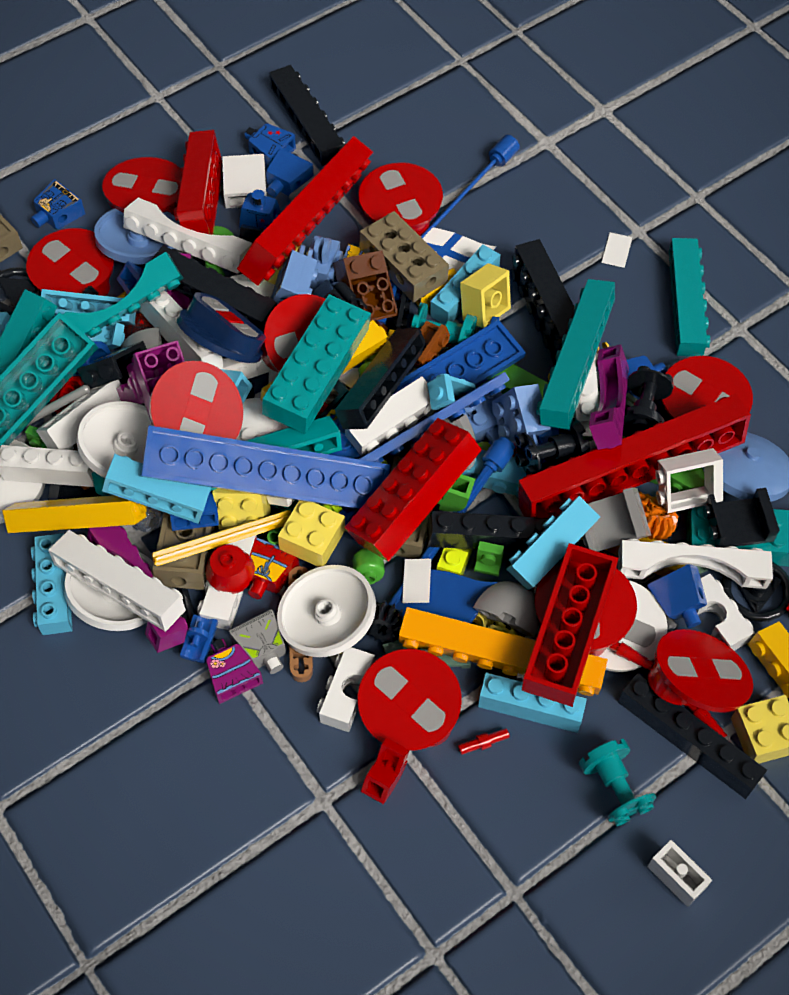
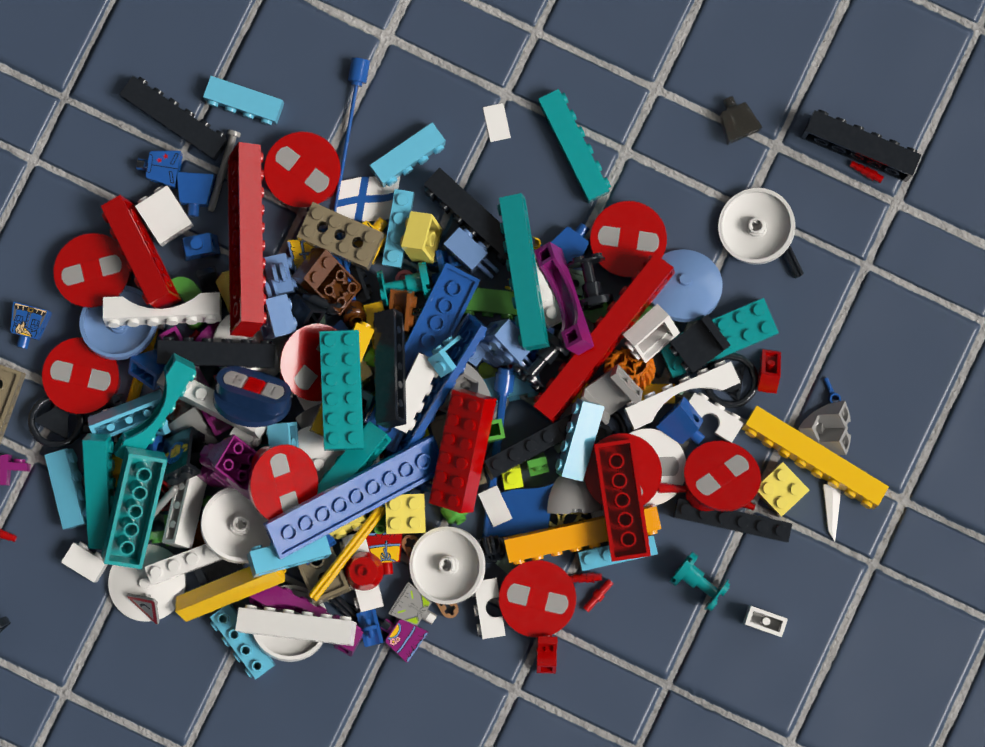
camera: 25 degrees left, 25 degrees up
(380, 128) = (243, 100): none -> medium azure brick
(481, 715) = (586, 577): none -> red animal
(511, 230) = (407, 155): none -> medium azure brick
(527, 327) = (469, 252): none -> medium blue brick

